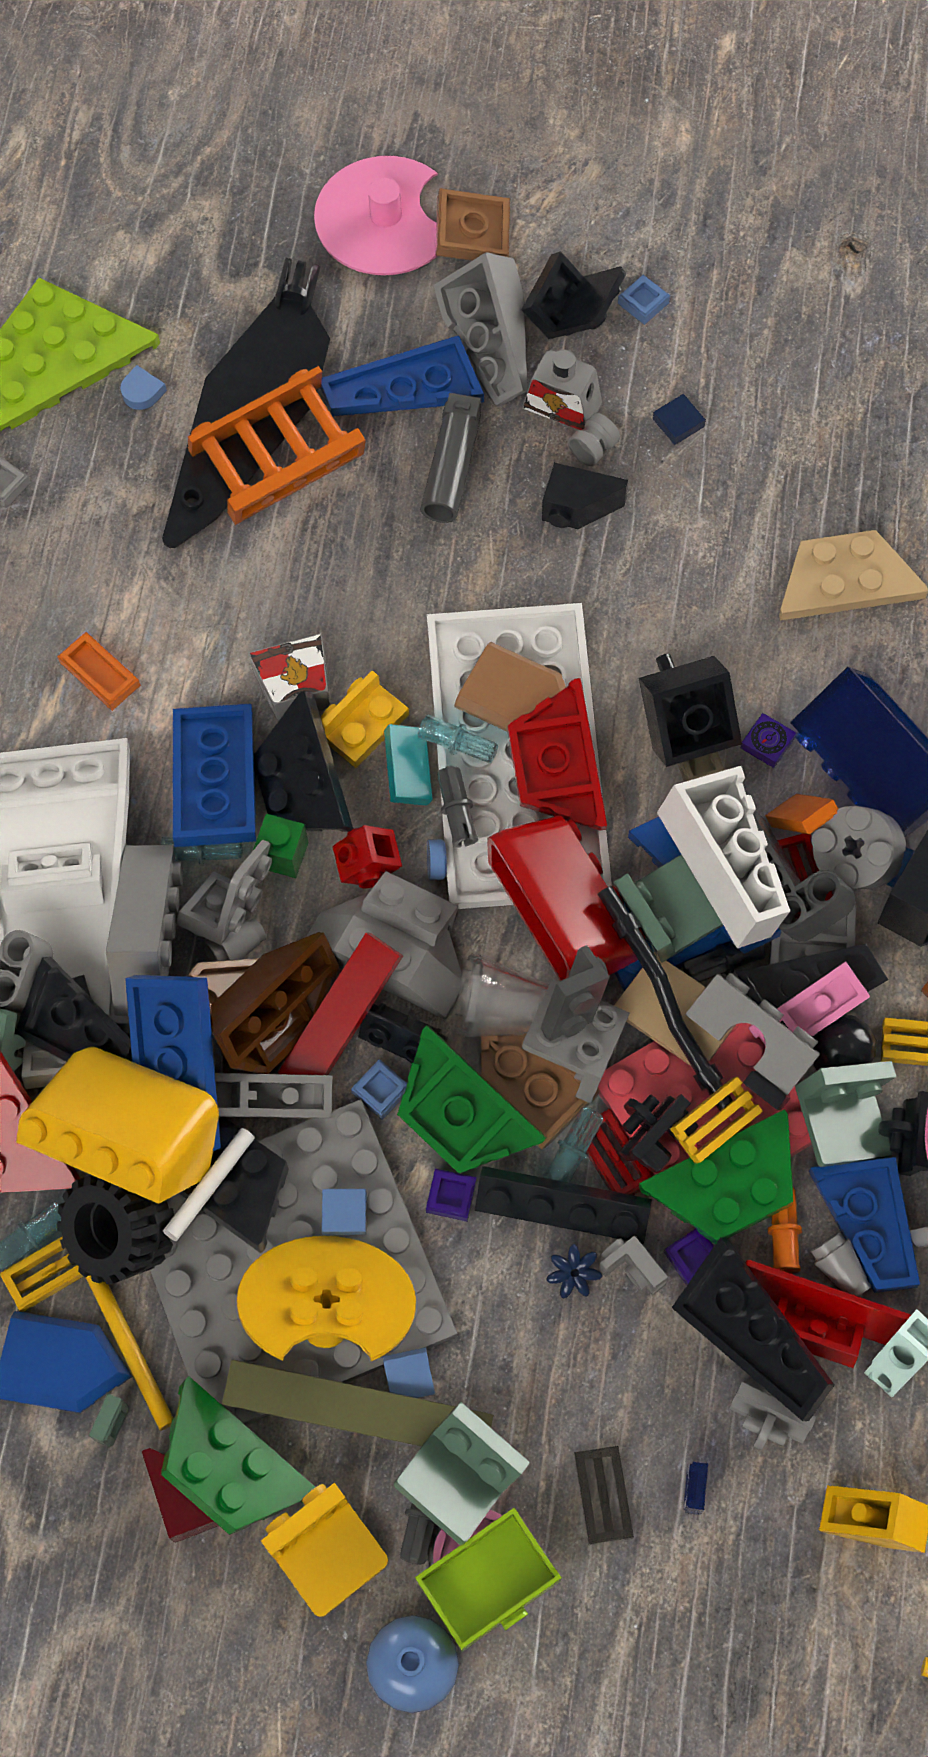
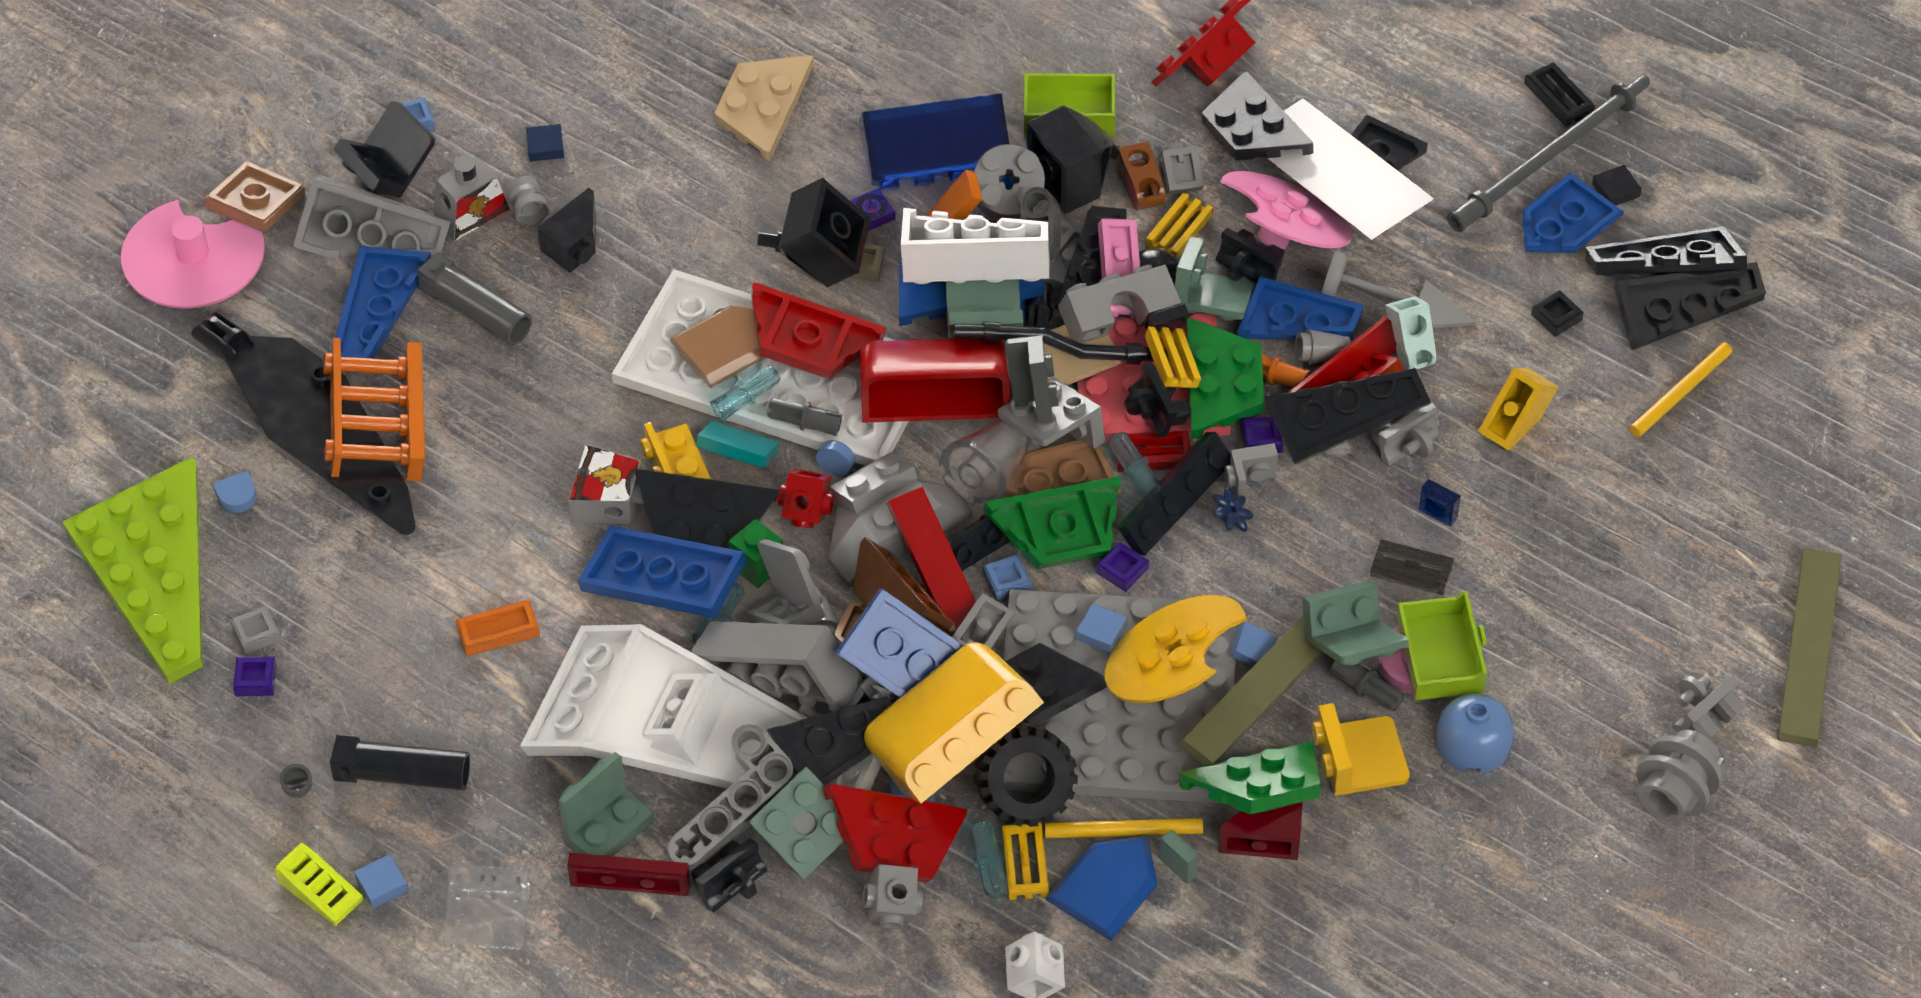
camera: 65 degrees left, 15 degrees down
(208, 1184) = (1047, 709): white bar -> none

